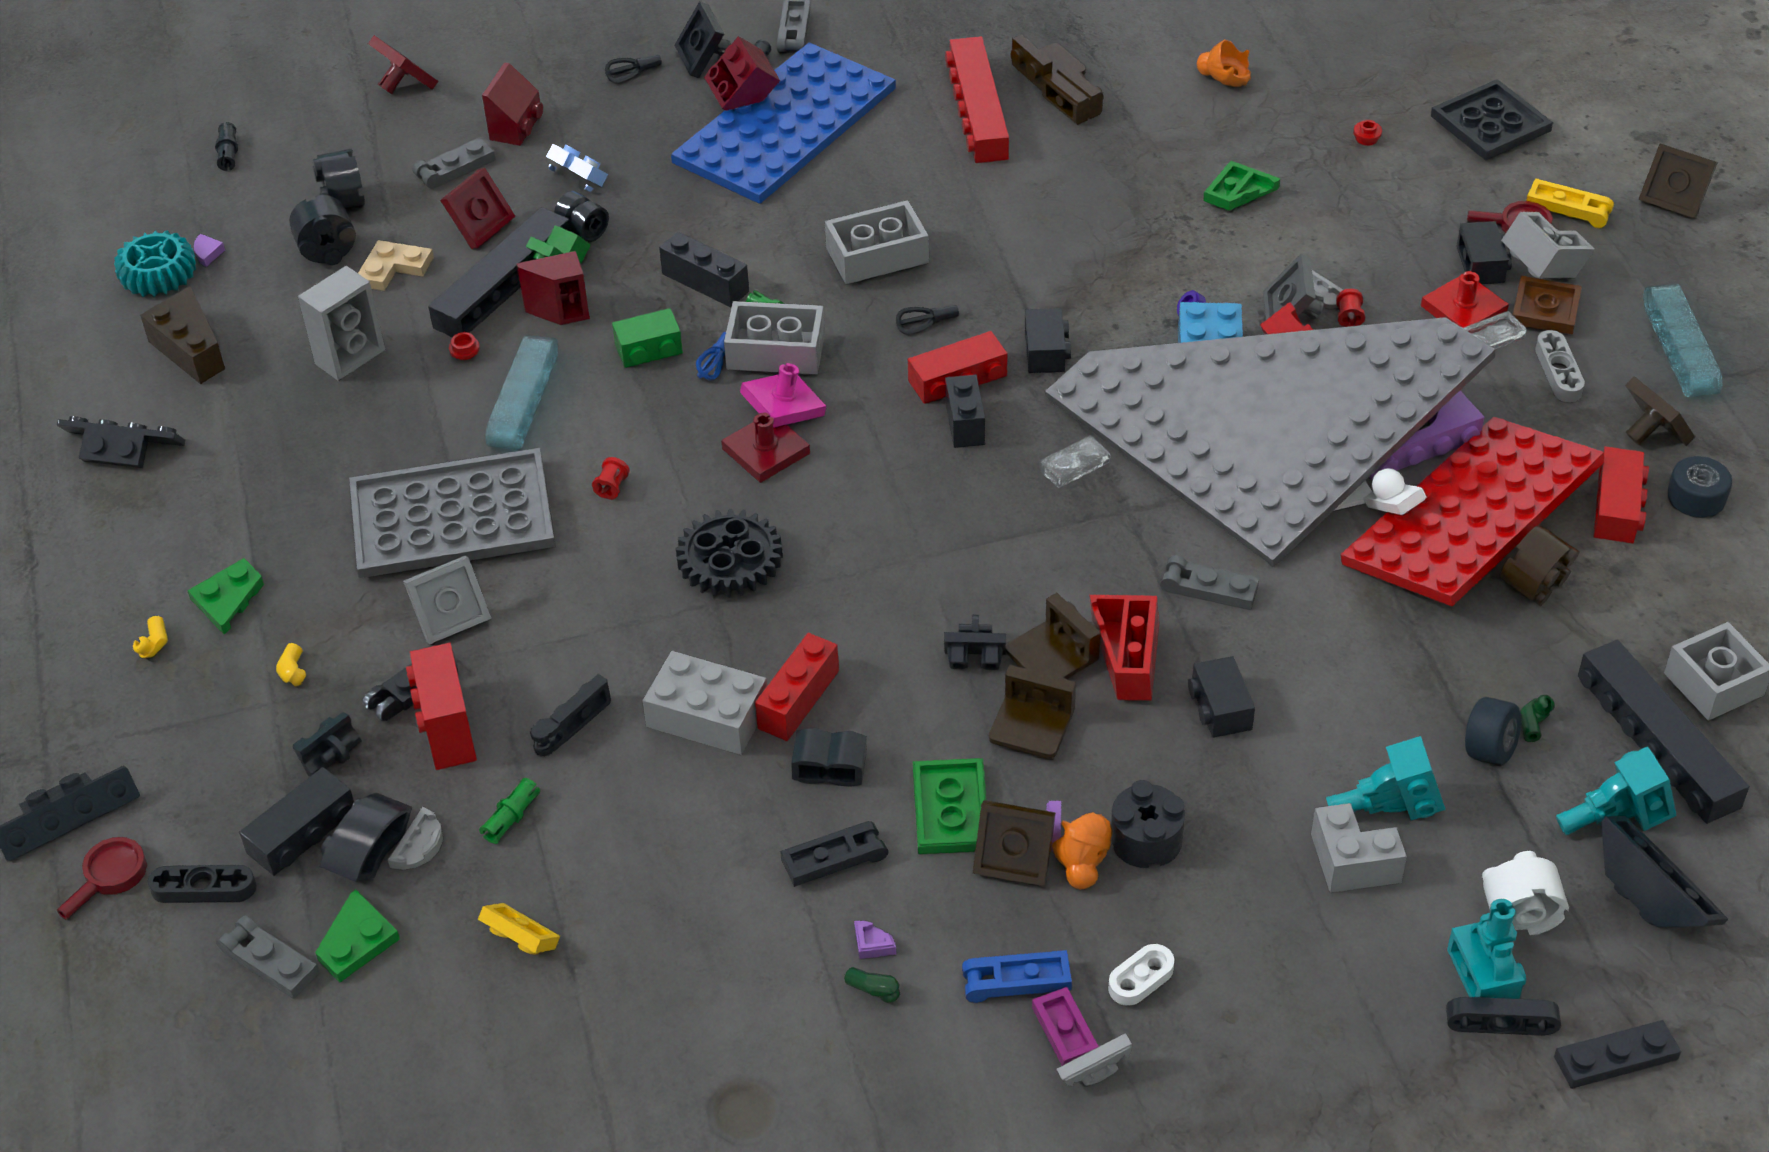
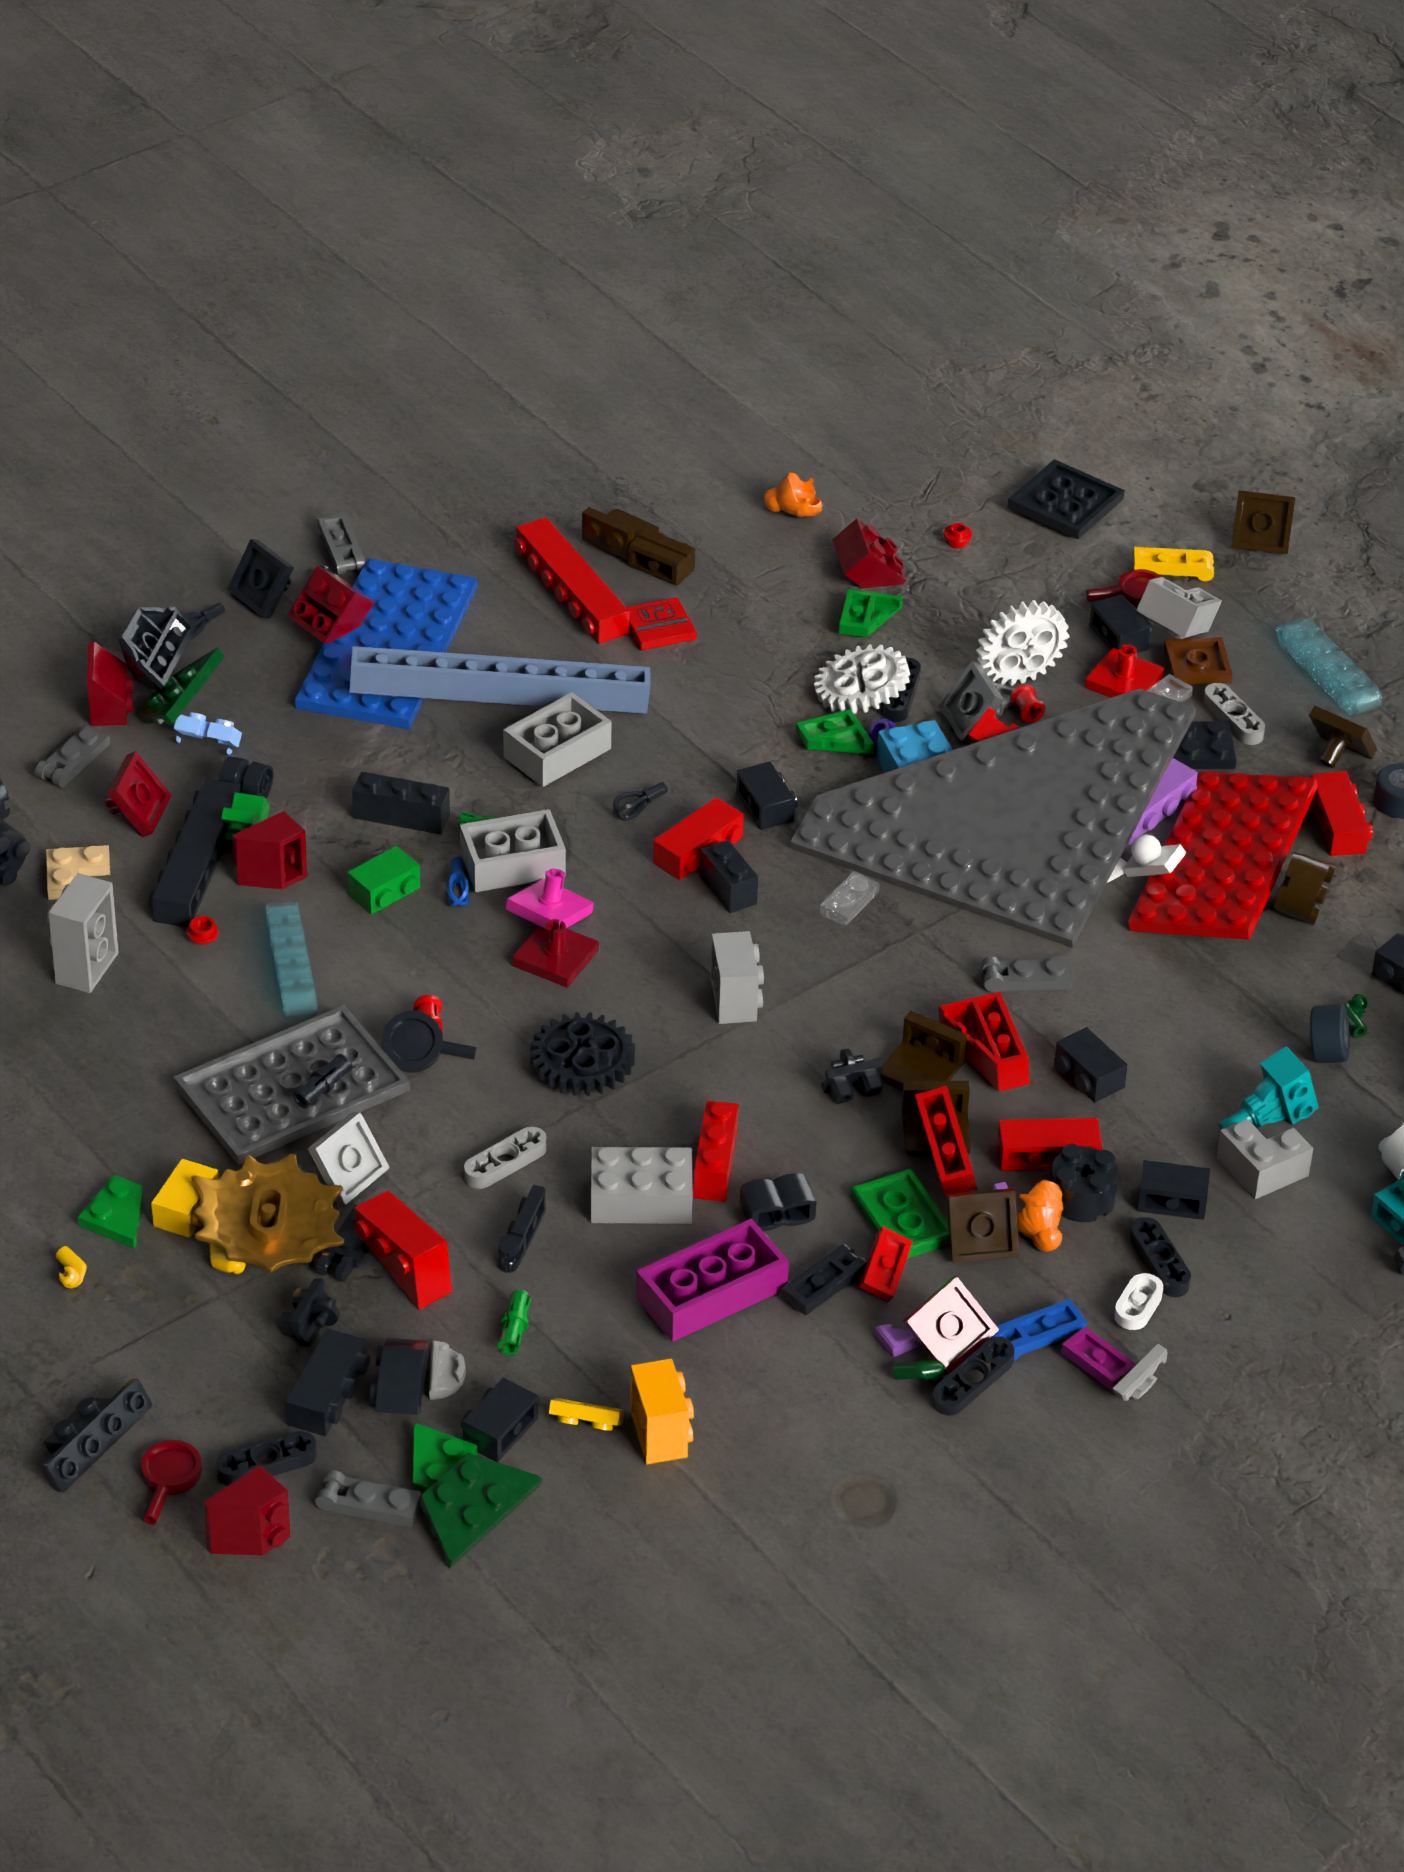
camera: 25 degrees left, 5 degrees down
(131, 941) = (248, 1516): none -> dark red slope
(288, 598) = (178, 1199): none -> yellow brick
(342, 635) = (268, 1213): none -> pearl gold piece
(355, 992) = (473, 1502): none -> dark green wing
(432, 910) = (500, 1419): none -> black brick
(469, 516) = (322, 1081): none -> black pin
(570, 75) = (155, 643): none -> black wedge
(572, 120) = (179, 690): none -> dark green wing
(579, 951) = (660, 1411): none -> light orange brick
(582, 500) = (416, 1042): none -> black piece
(608, 626) = (523, 1145): none -> light grey beam
(714, 822) = (711, 1279): none -> magenta brick
(852, 174) = (497, 679): none -> sand blue brick
(898, 855) = (885, 1264): none -> red plate
(900, 1029) = (969, 1390): none -> black beam
(909, 513) = (736, 977): none -> light grey brick
(919, 945) = (950, 1324): none -> tile
(1021, 741) = (946, 1141): none -> red brick
(1039, 156) = (660, 624): none -> red tile
(1115, 764) = (1037, 1142): none -> red brick
(1145, 295) = (835, 733): none -> green wing
(1185, 942) = (1160, 1243): none -> black beam
(1197, 249) = (882, 672): none -> white gear
(1235, 257) = (906, 697): none -> black beam
(1241, 858) = (1174, 1189): none -> black brick
(1267, 134) = (868, 556): none -> dark red slope
(1364, 247) = (1022, 643): none -> white gear
(1511, 390) = (1207, 746): none -> black plate

